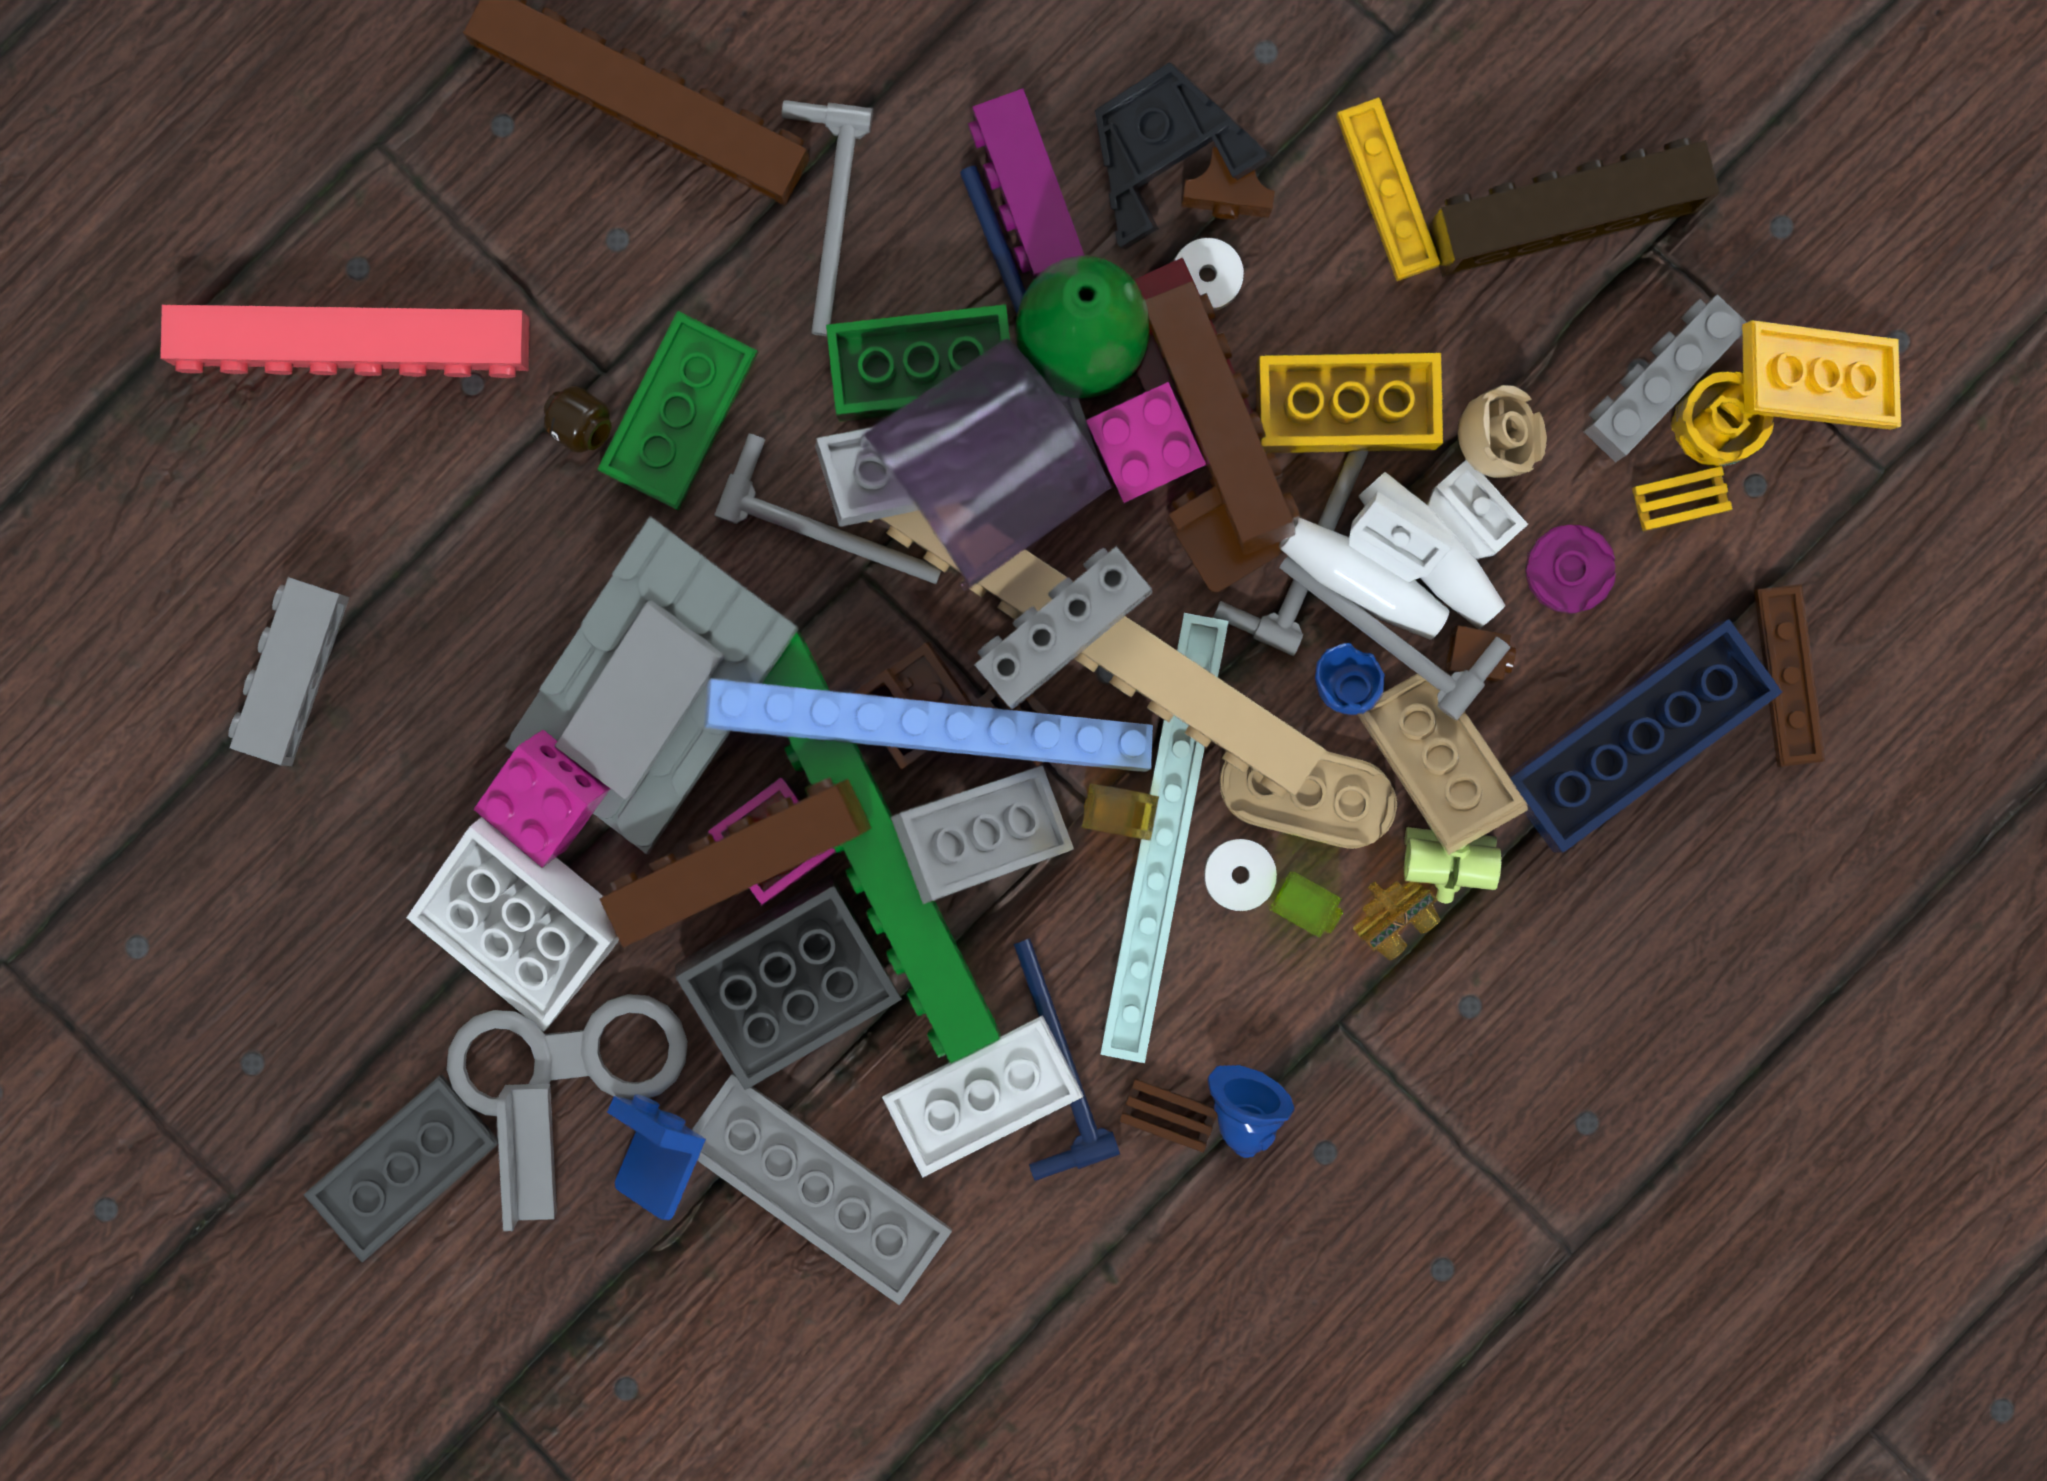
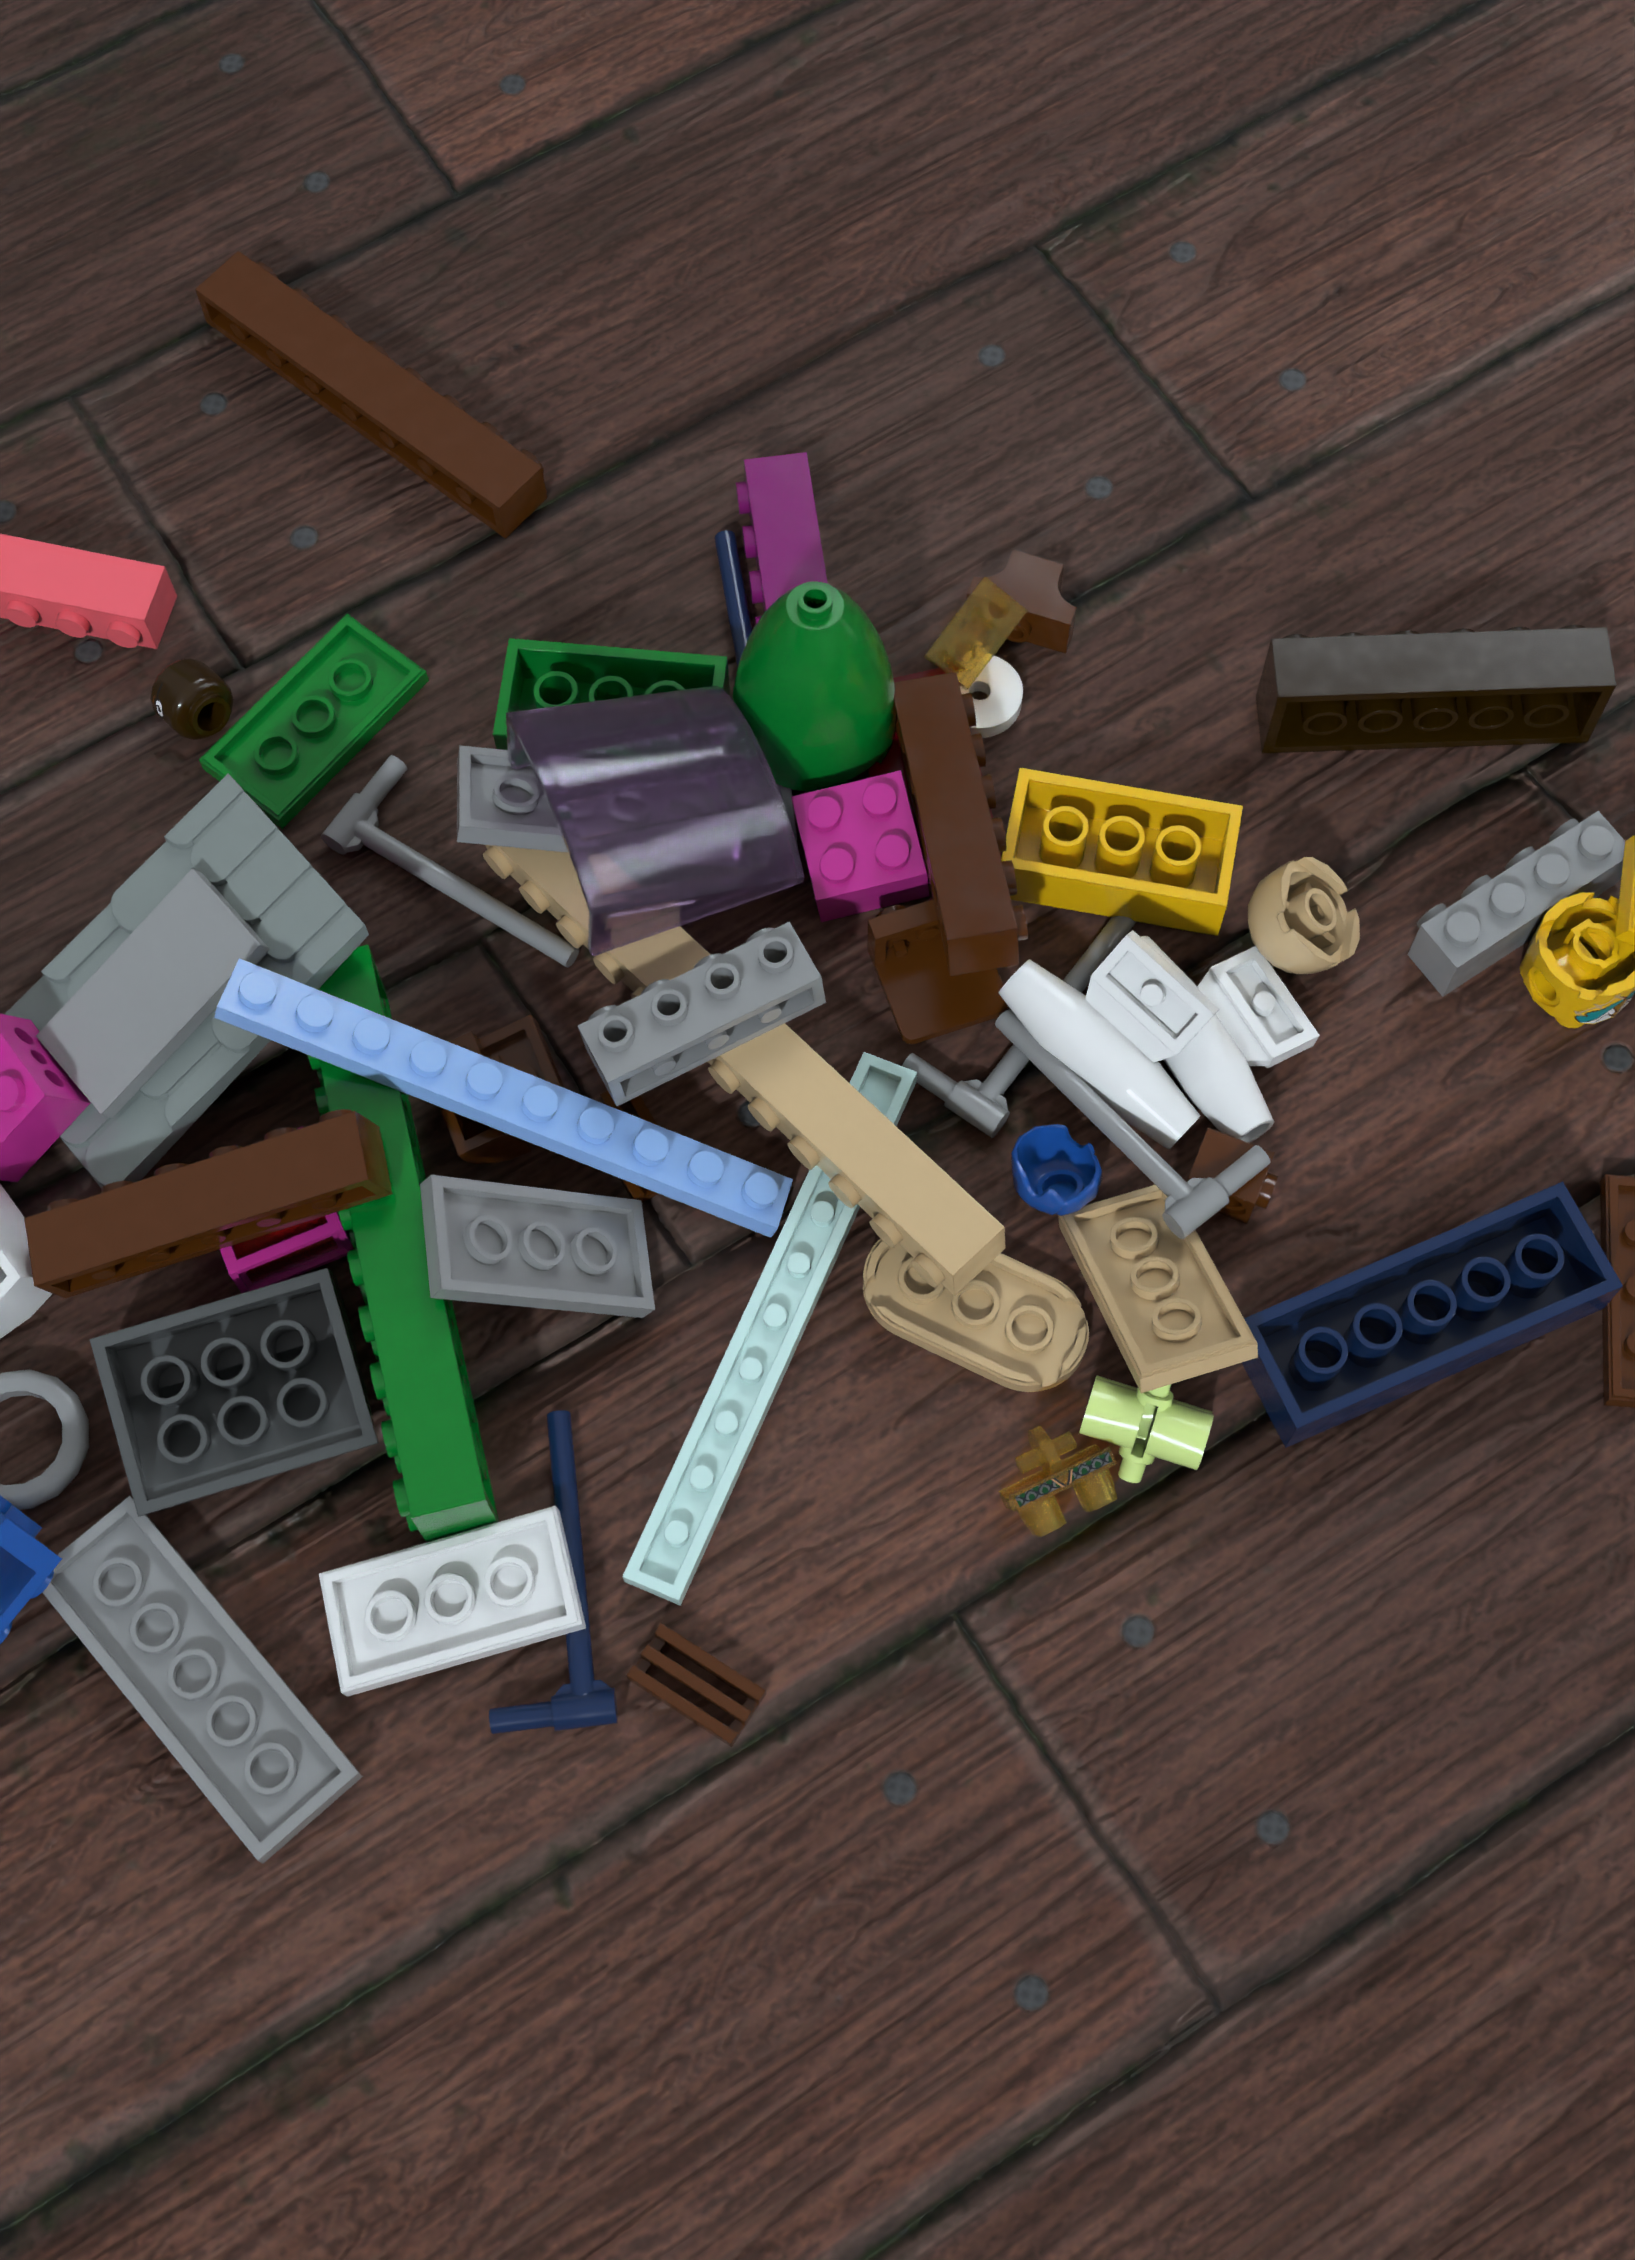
camera: 15 degrees right, 20 degrees down
(848, 124) = (598, 467): light grey bar -> none
(1120, 811) = (724, 1268): clear yellow brick -> none
(1157, 128) = (949, 527): black wing -> none
(1198, 233) = (975, 632): none -> clear yellow hips
(1248, 1108) = (802, 1695): blue piece -> none
(1260, 878) = (859, 1416): white piece -> none
(1307, 905) = (942, 1441): clear neon green brick -> none
(1388, 189) = (1214, 648): yellow tile -> none
(1570, 569) = (1366, 1106): magenta tile -> none
(1719, 490) = (1521, 1030): yellow tile -> none

